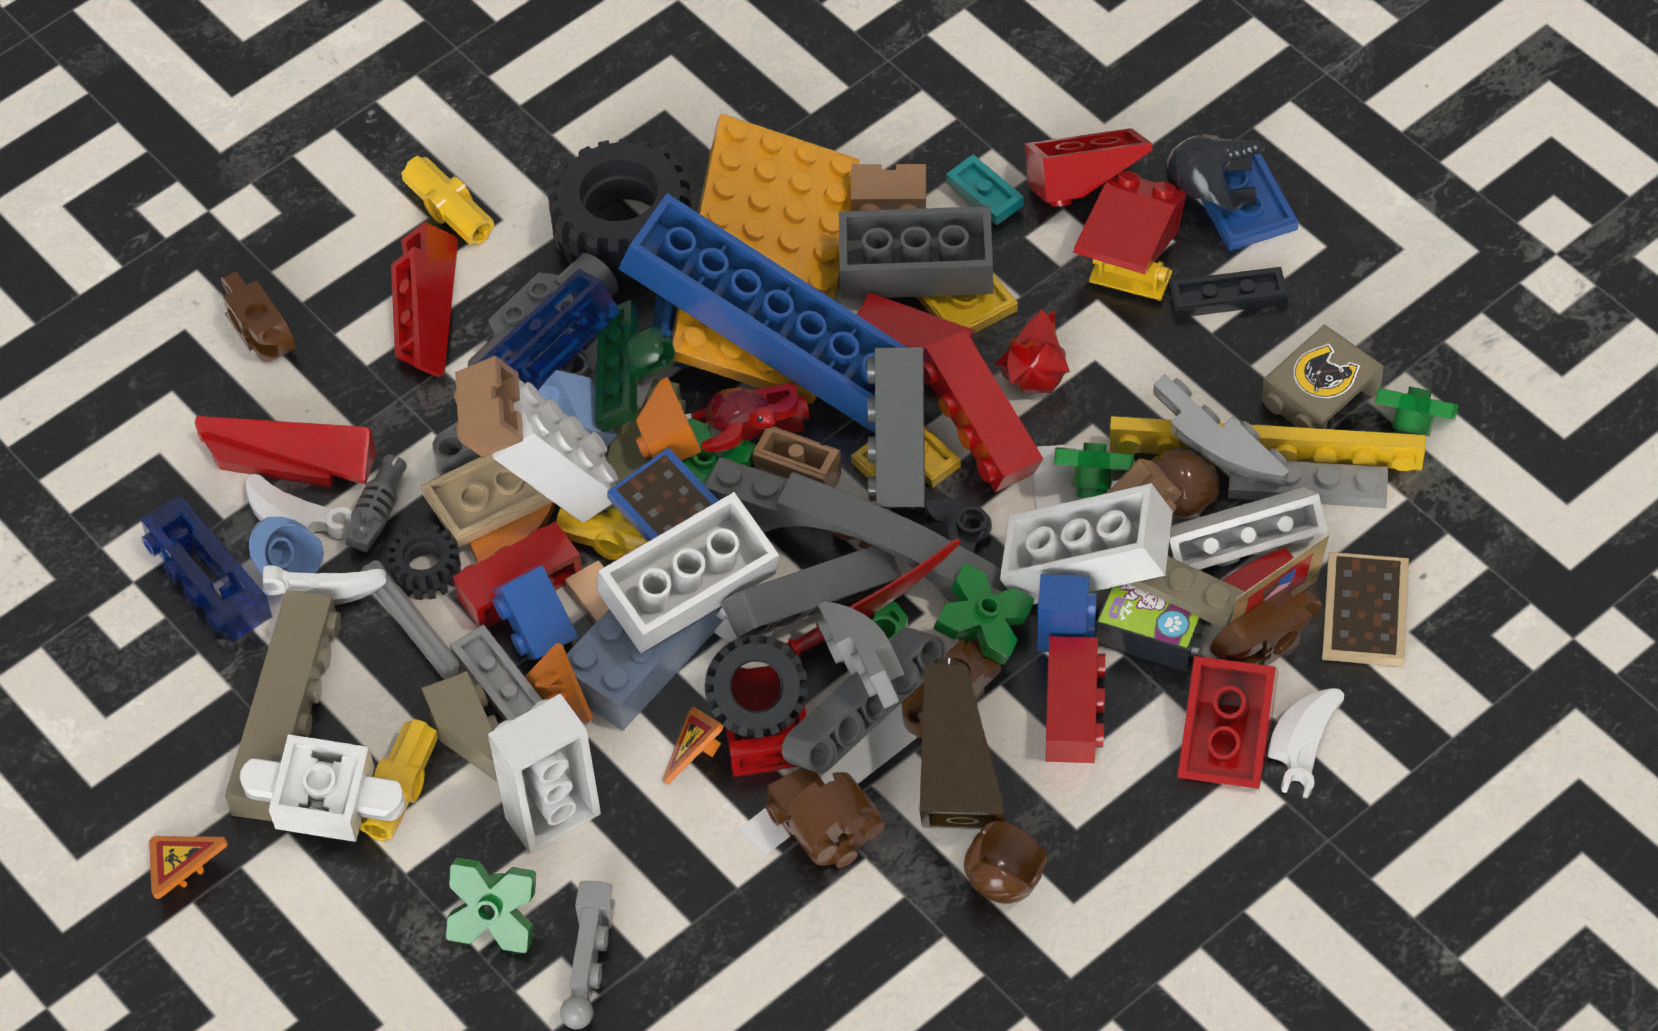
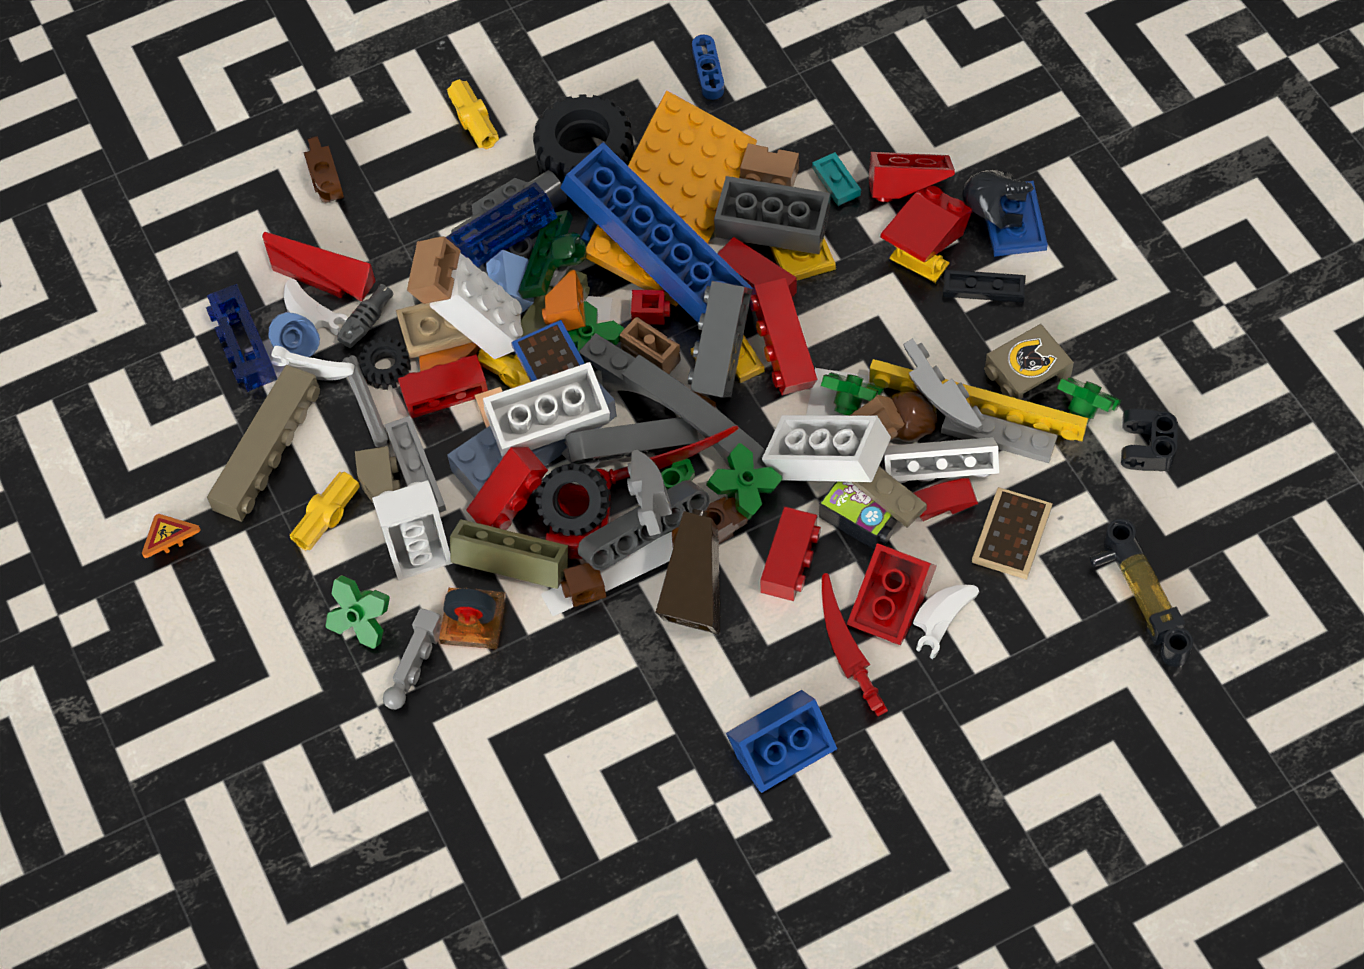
camera: 15 degrees right, 5 degrees up
(324, 772) = (268, 507): white brick -> none
(424, 297) = (438, 178): red wedge -> none
(533, 613) = (444, 415): blue brick -> none
(555, 676) = (445, 465): orange piece -> none
(654, 879) = (472, 618): none -> plate
(658, 694) = (507, 488): none -> red brick
(682, 781) = (508, 553): none -> olive brick
(695, 736) = (530, 522): orange piece -> none
(741, 416) = (620, 307): animal -> none
(759, 88) = (706, 75): none -> blue beam
(834, 820) = (600, 604): reddish brown brick -> none
(952, 519) = (745, 409): black plate -> none
(1004, 862) = (707, 659): reddish brown piece -> none
(1034, 357) = (834, 306): red hair -> none
(1065, 608) = (799, 489): blue brick -> none
(1137, 949) = (782, 740): none -> blue slope
(1187, 810) = (846, 650): none -> red sword
(1267, 629) = (936, 534): reddish brown piece -> none
(1293, 576) = (950, 507): sticker -> none
(1528, 442) = (1147, 457): none -> black piece
(1605, 681) = (1163, 621): none -> black piece

